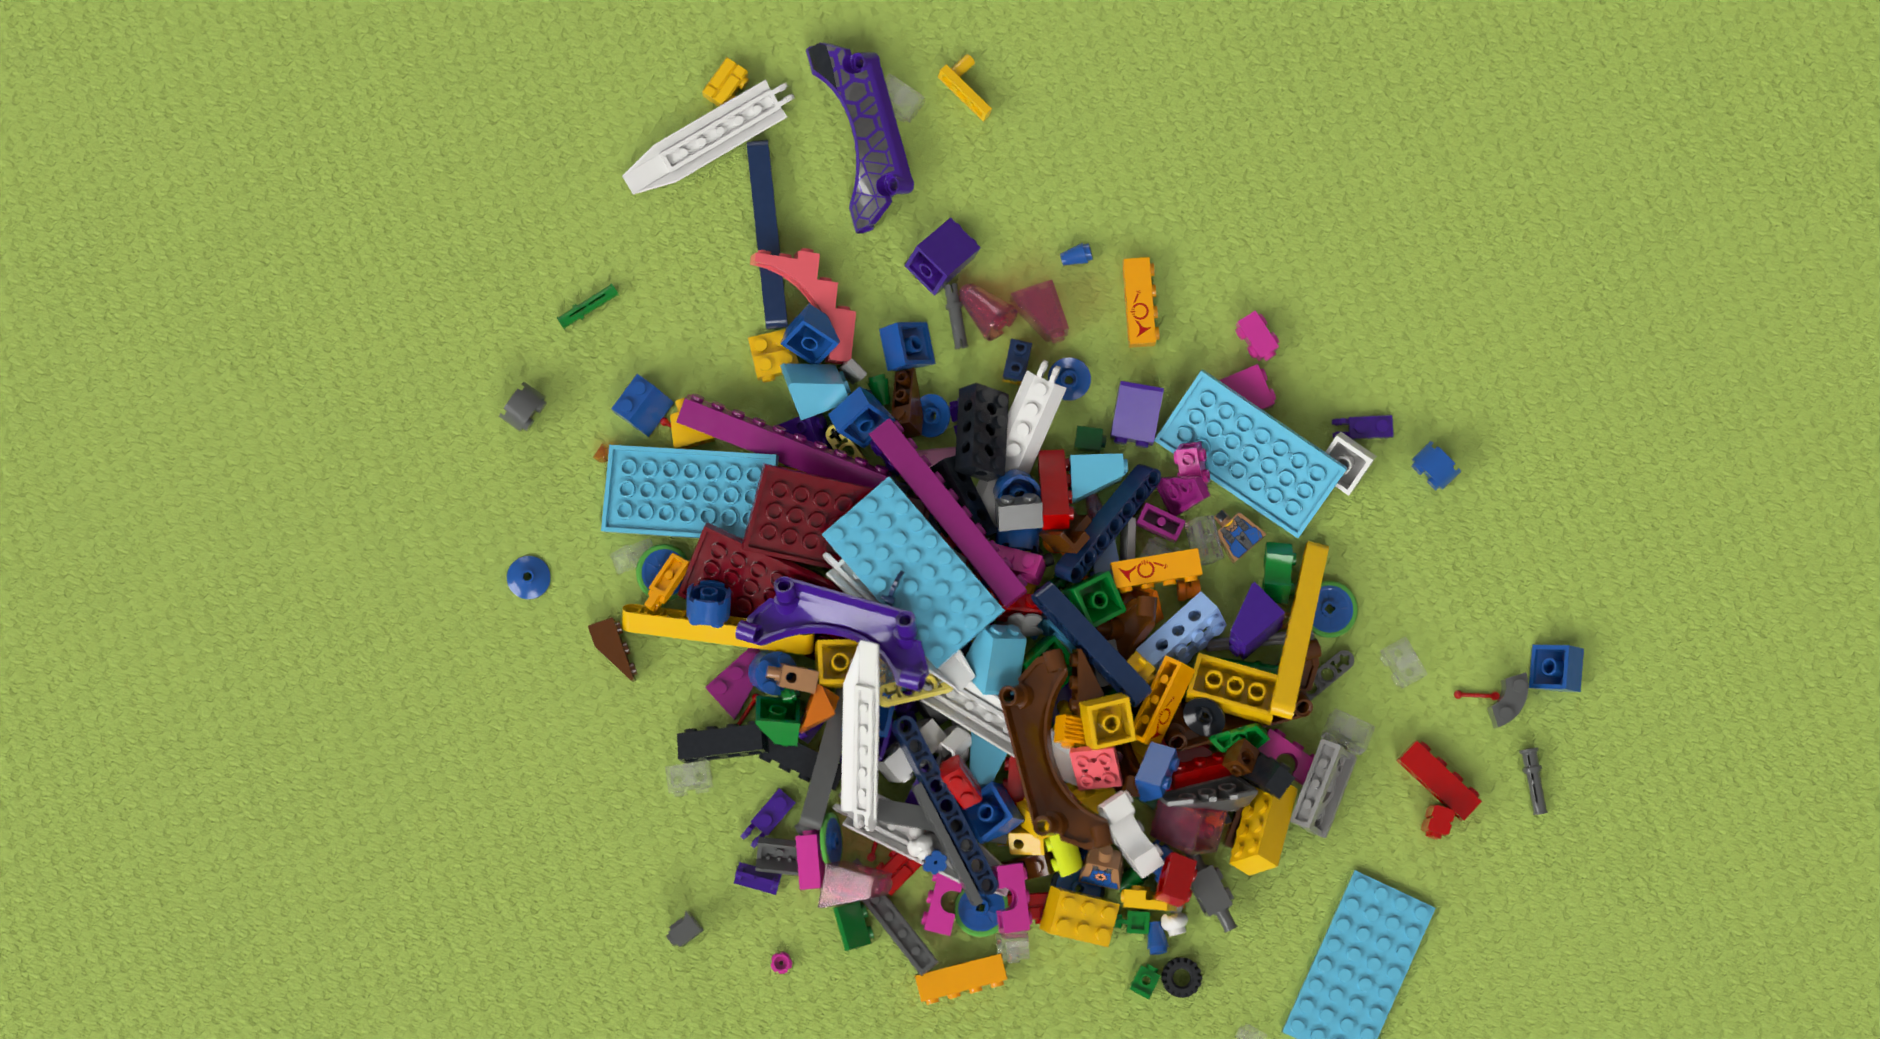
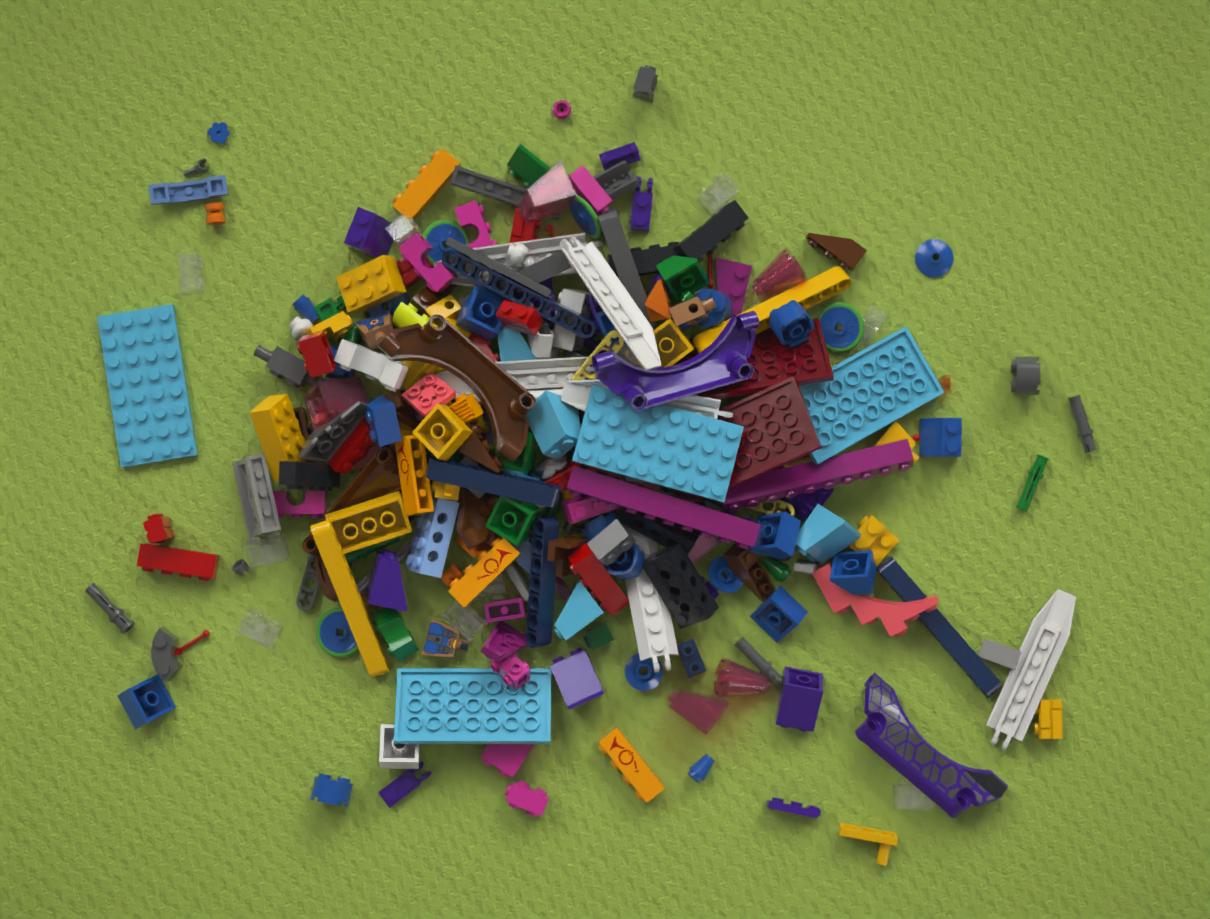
camera: 150 degrees right, 5 degrees up
(505, 318) = (1082, 424): none -> dark grey pin
(666, 581) = (832, 320): light orange hinge -> none
(685, 659) = (779, 275): none -> clear pink cone
(729, 171) = (999, 654): none -> light grey tile
(889, 600) = (660, 411): dark blue piece -> none
(938, 865) = (499, 250): blue plant -> none
(1016, 161) = (795, 808): none -> dark purple hinge
(1048, 964) = (368, 234): none -> dark purple slope
(1137, 985) = (294, 264): green brick -> none
(1181, 991) = (281, 293): black tyre -> none
(1200, 722) = (376, 487): black dish -> none
(1241, 758) = (330, 475): reddish brown brick -> none
(1253, 733) = (339, 488): green slope -> none
(1384, 734) = (240, 567): none -> dark grey hinge

